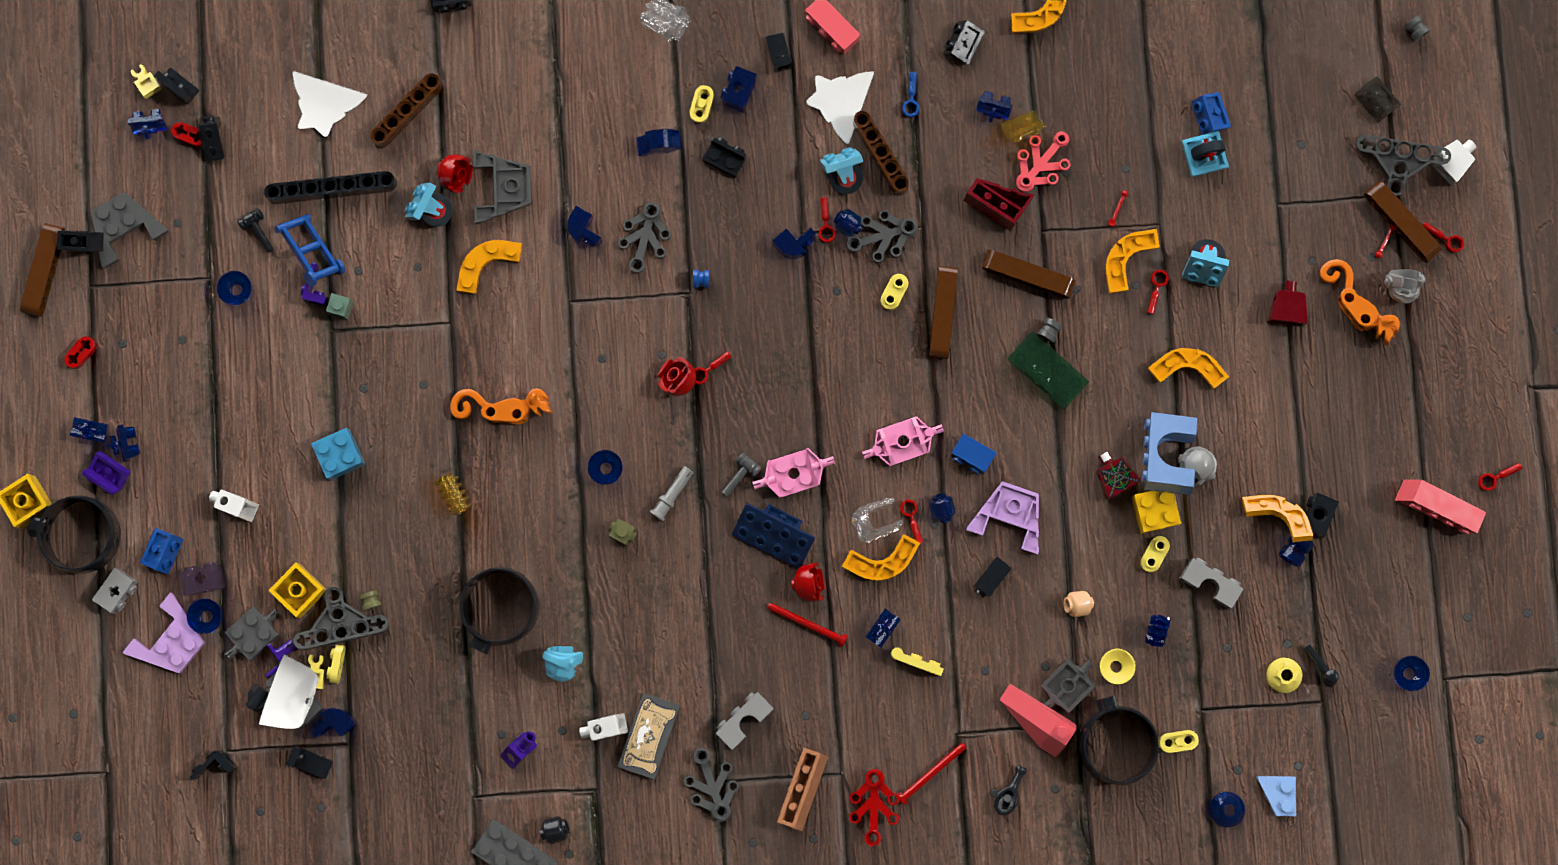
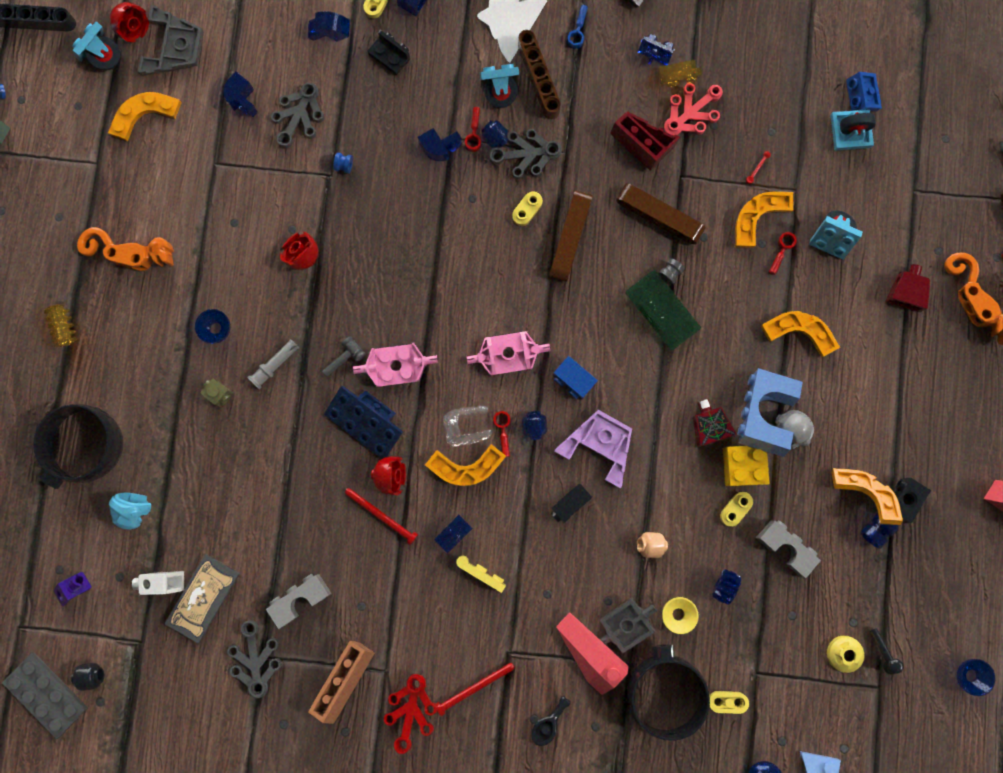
camera: 10 degrees right, 0 degrees up
(715, 364) = (340, 247): red piece -> none

